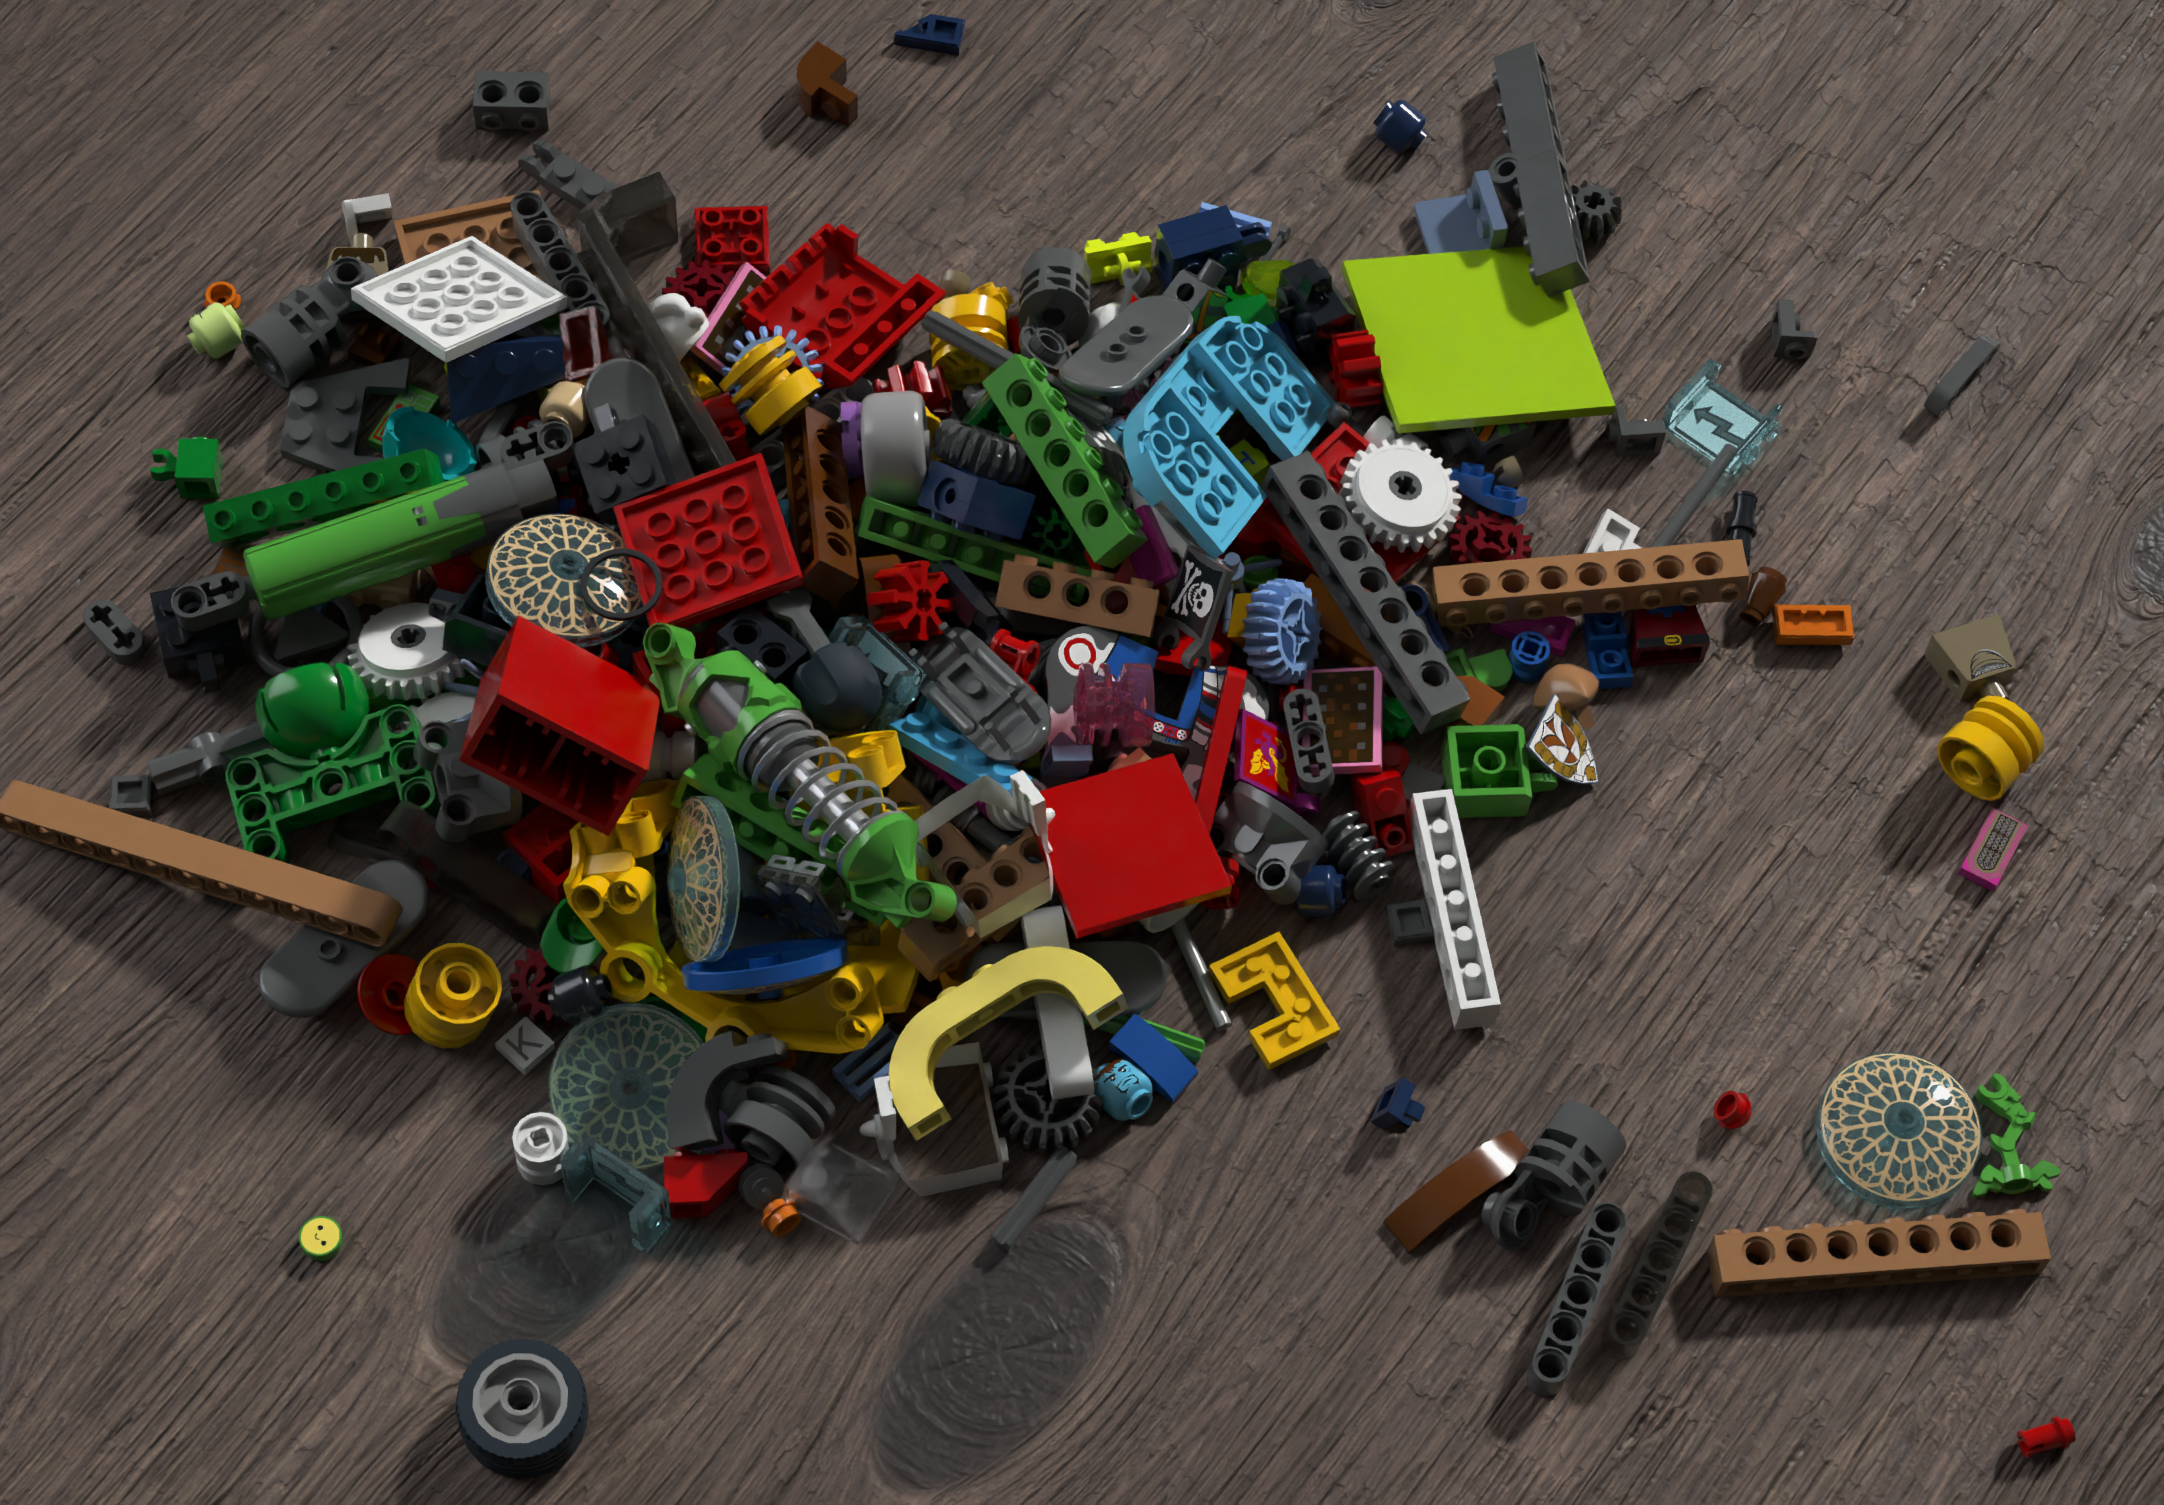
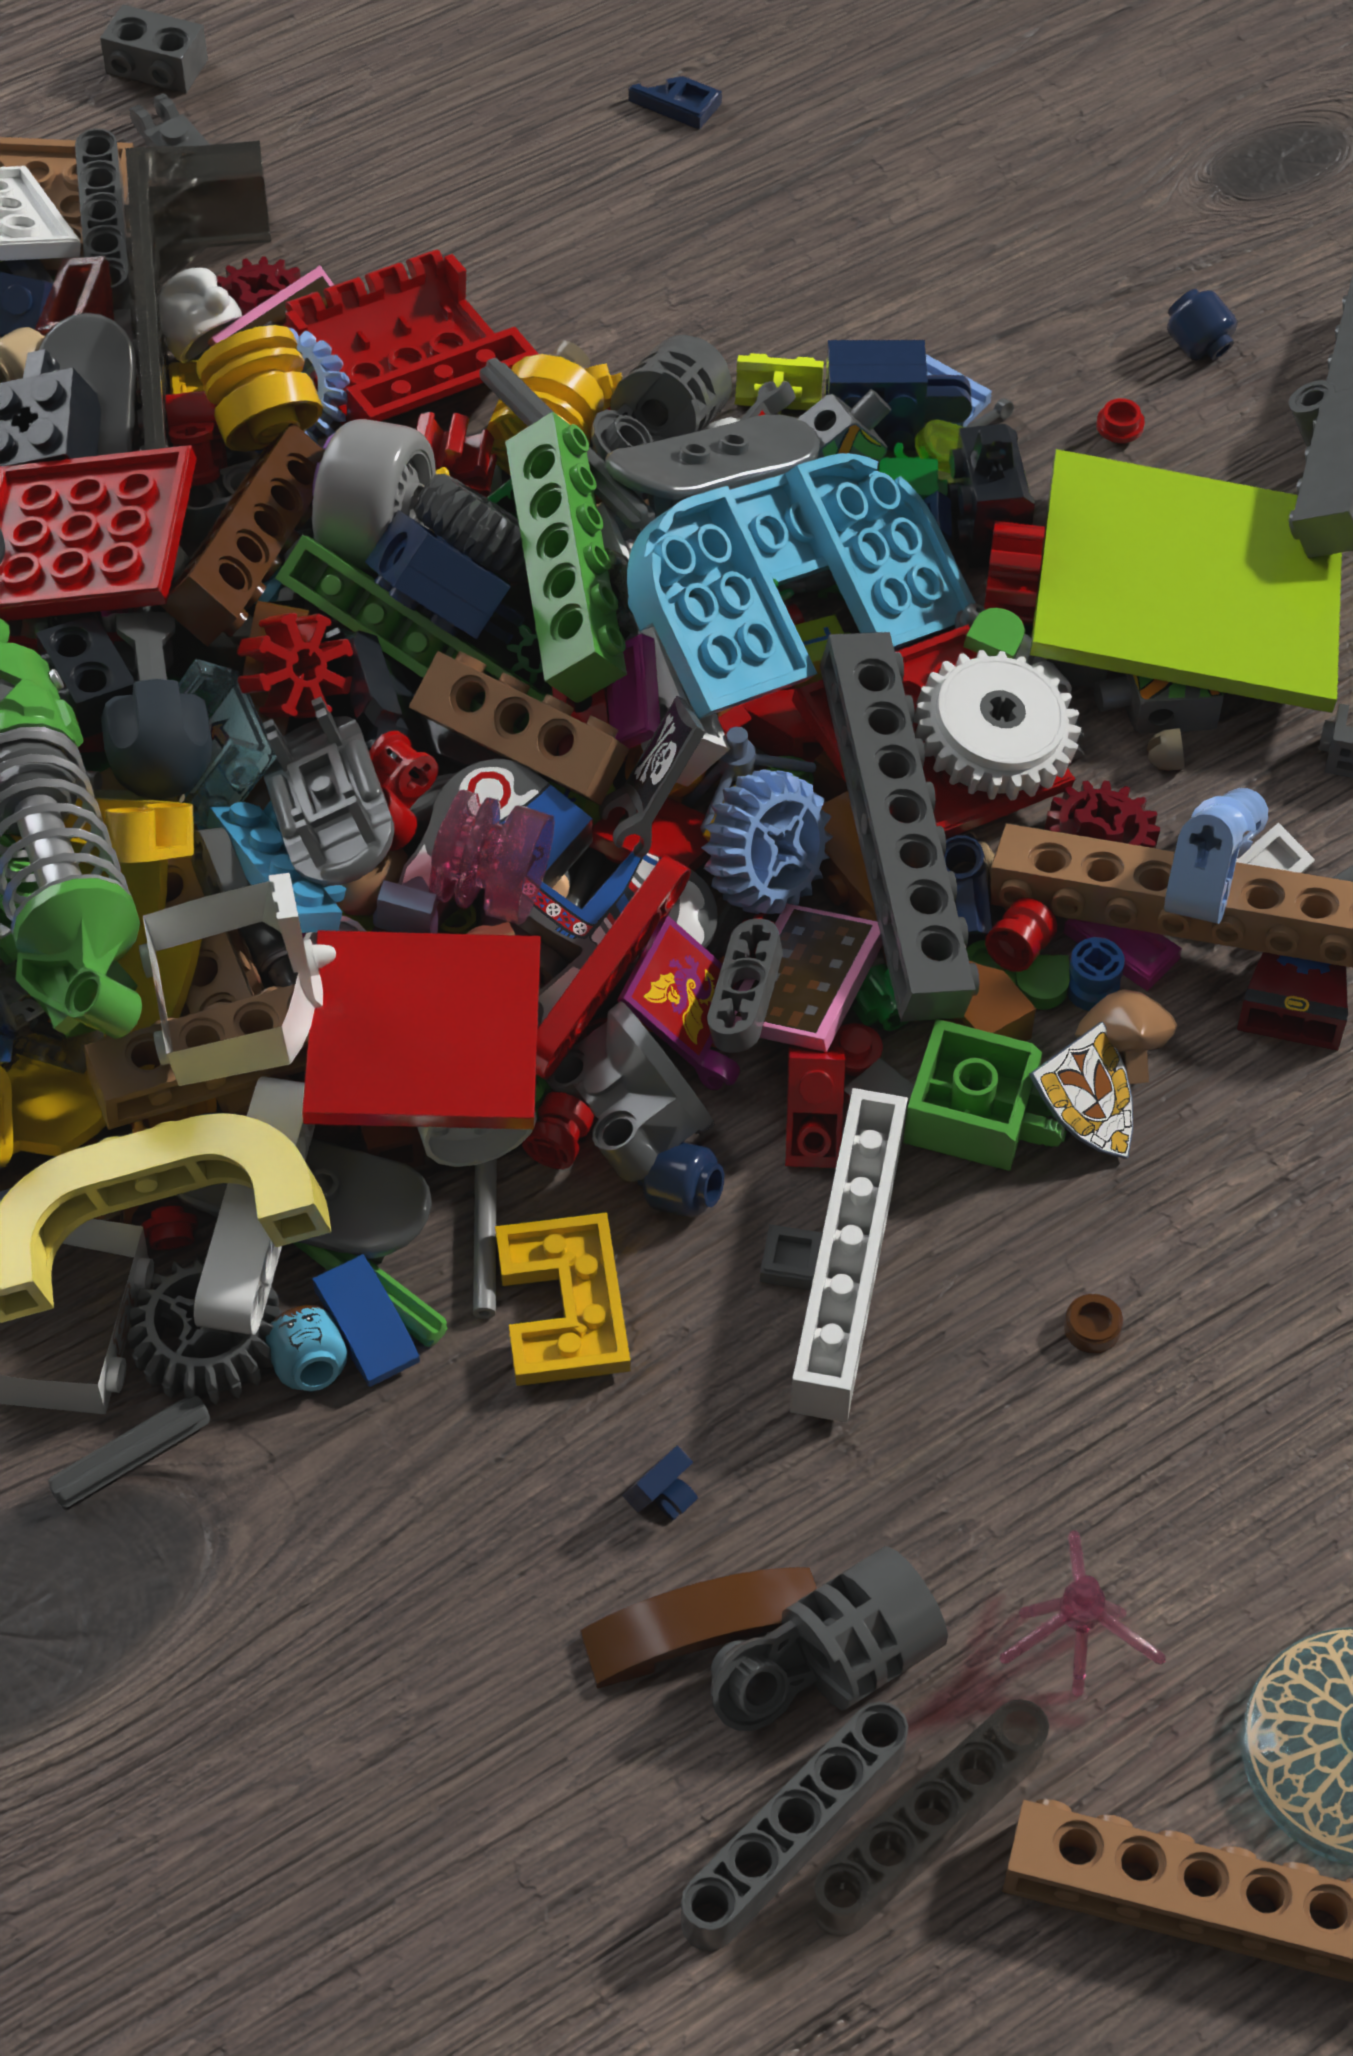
camera: 25 degrees right, 5 degrees down
(732, 237) = (335, 242): red tile -> none
(821, 83) = (517, 115): reddish brown brick -> none
(924, 774) = (216, 862): none -> dark grey beam
(989, 1036) = (170, 1228): none -> red plate
(1355, 856) = (754, 1150): dark grey piece -> none
(1369, 425) = (995, 632): none -> bright green tile
(1372, 221) = (1120, 421): none -> red plate
(1464, 220) = (1235, 448): sand blue bracket -> none
(1471, 645) = (1021, 934): none -> red wheel
(1479, 487) = (1126, 760): blue slope -> none
(1589, 548) = (1209, 853): none -> light blue piece
(1606, 649) = (1209, 997): blue slope -> none
(1622, 905) = (1093, 1323): none -> reddish brown tile
(1702, 1102) = (1082, 1610): none -> clear pink plant
(1732, 1110) = (1120, 1651): red plate -> none

